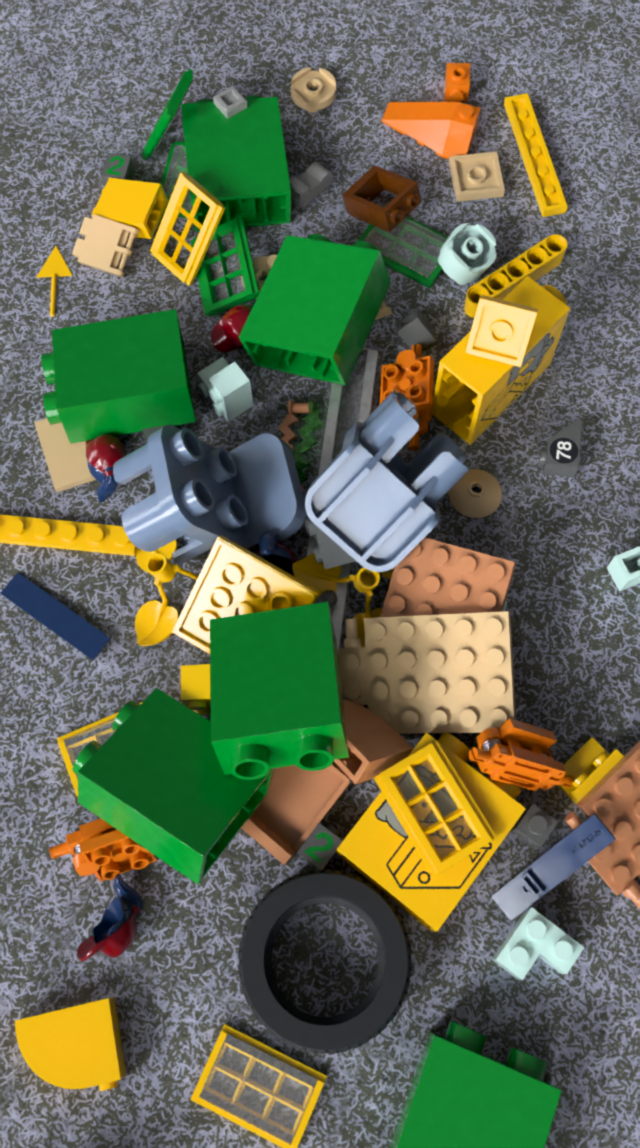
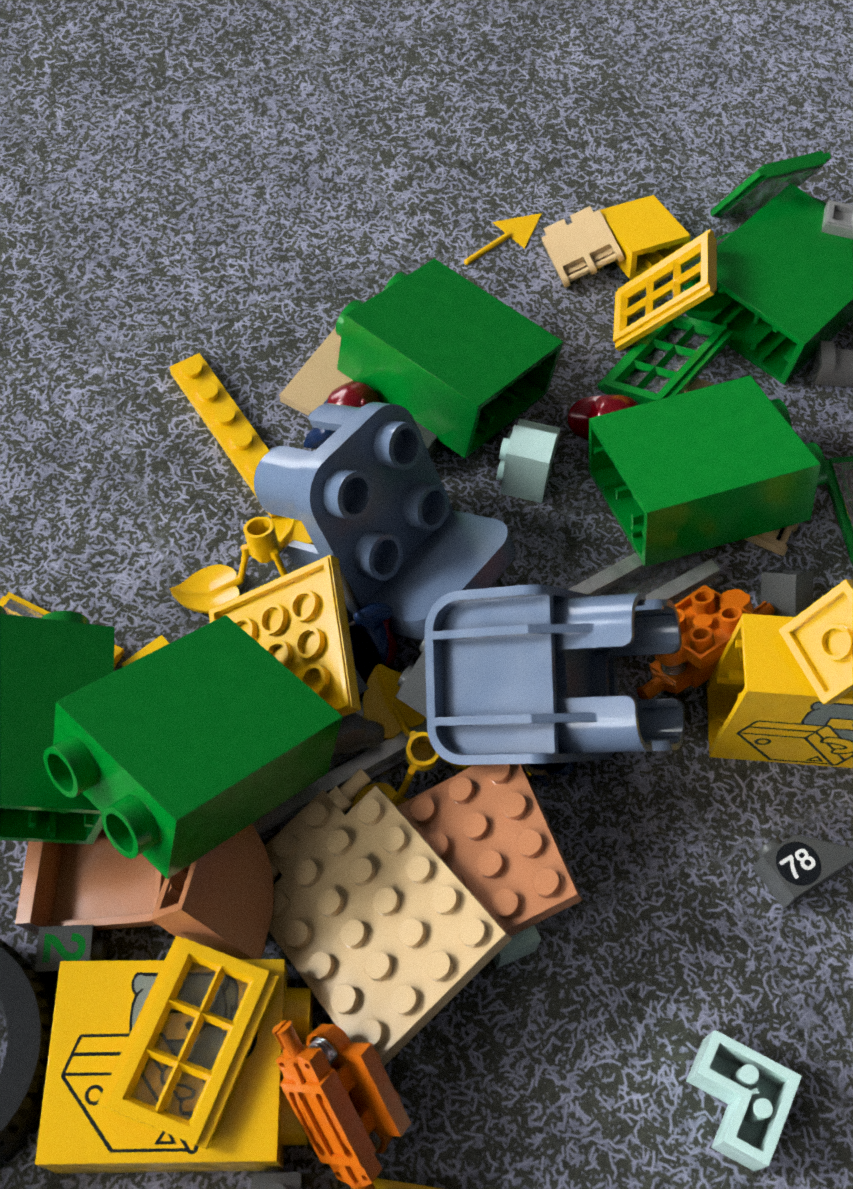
camera: 45 degrees right, 10 degrees down
(55, 616) = (143, 497): dark blue piece -> none
(117, 166) = (675, 196): dark grey brick -> none
(313, 423) = (572, 569): clear neon green piece -> none
(476, 504) = (650, 824): tan dish -> none

